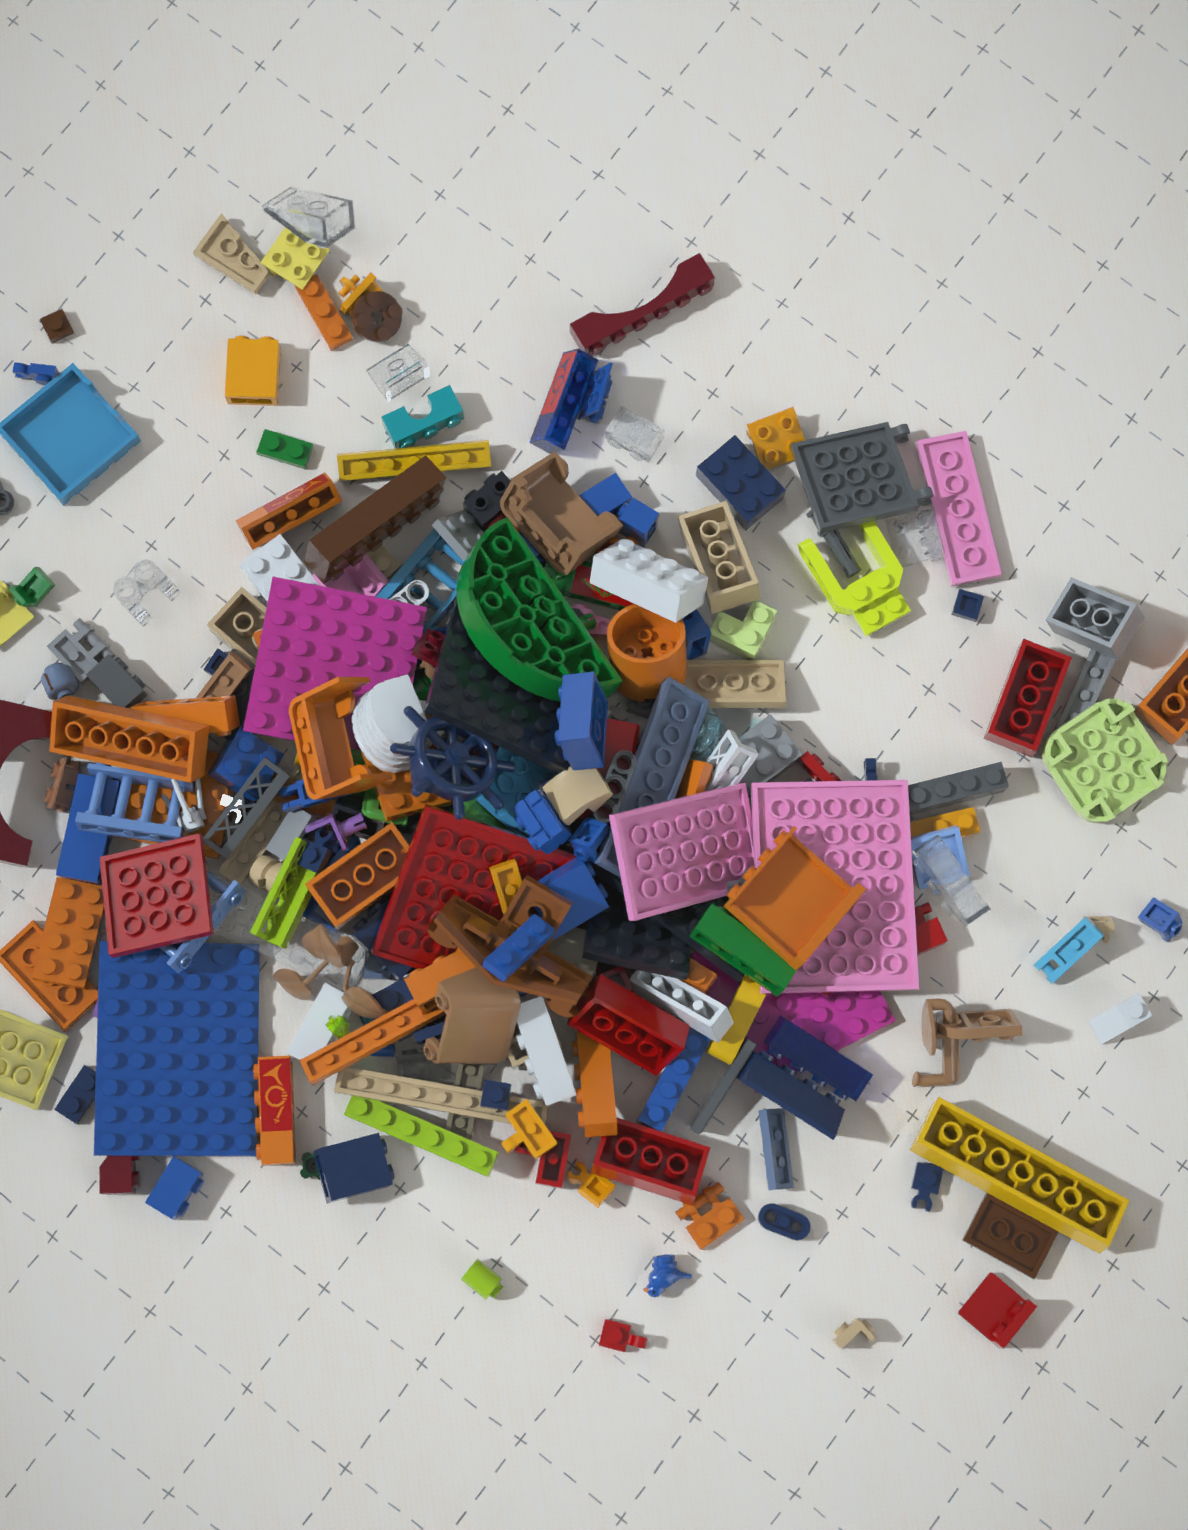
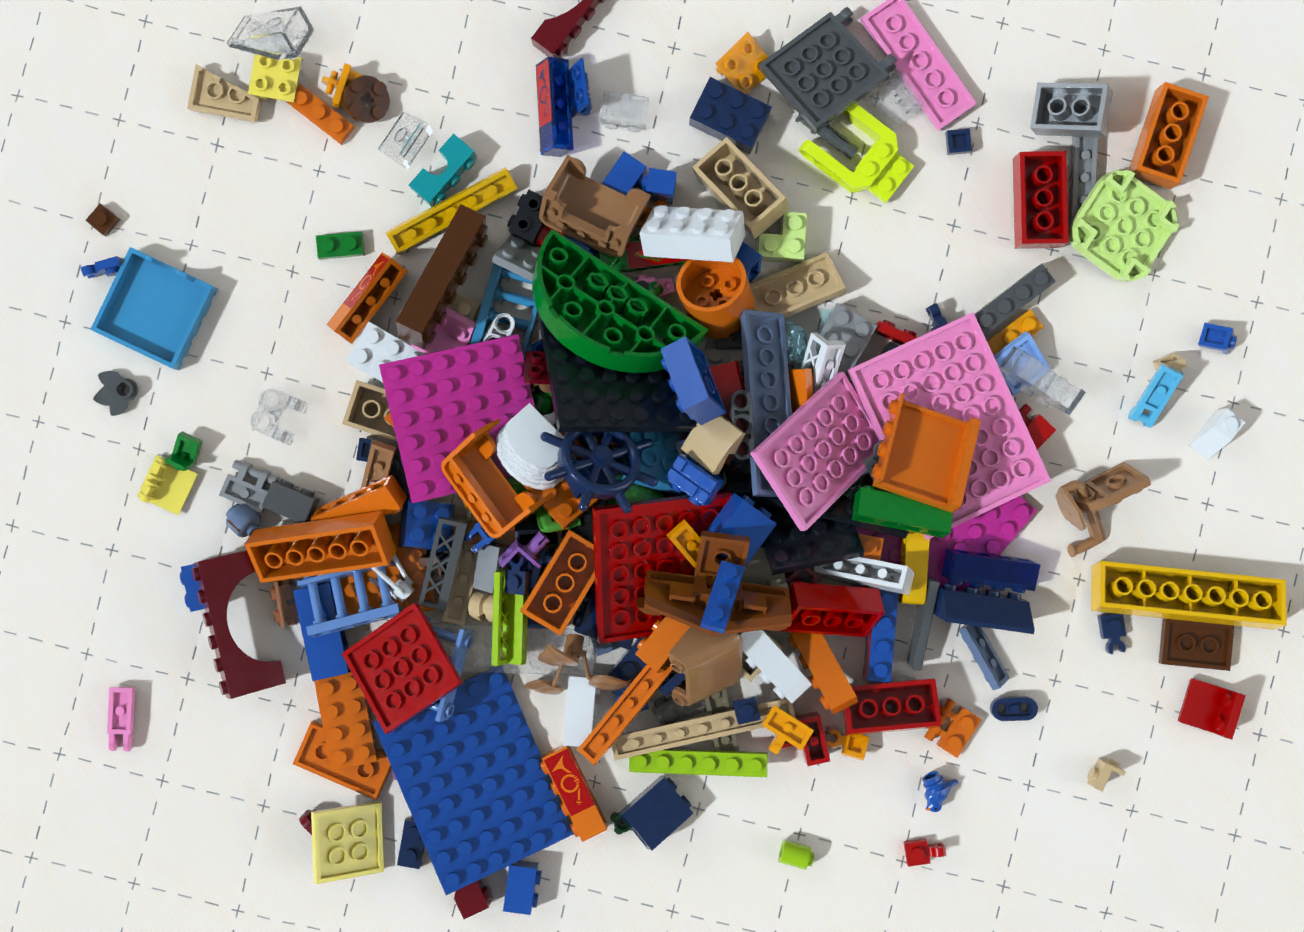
camera: 25 degrees left, 10 degrees up
(252, 371) = (283, 190): light orange brick -> none
(338, 1026) = (595, 708): clear neon green plate -> none
(588, 838) = (739, 477): blue bracket -> none

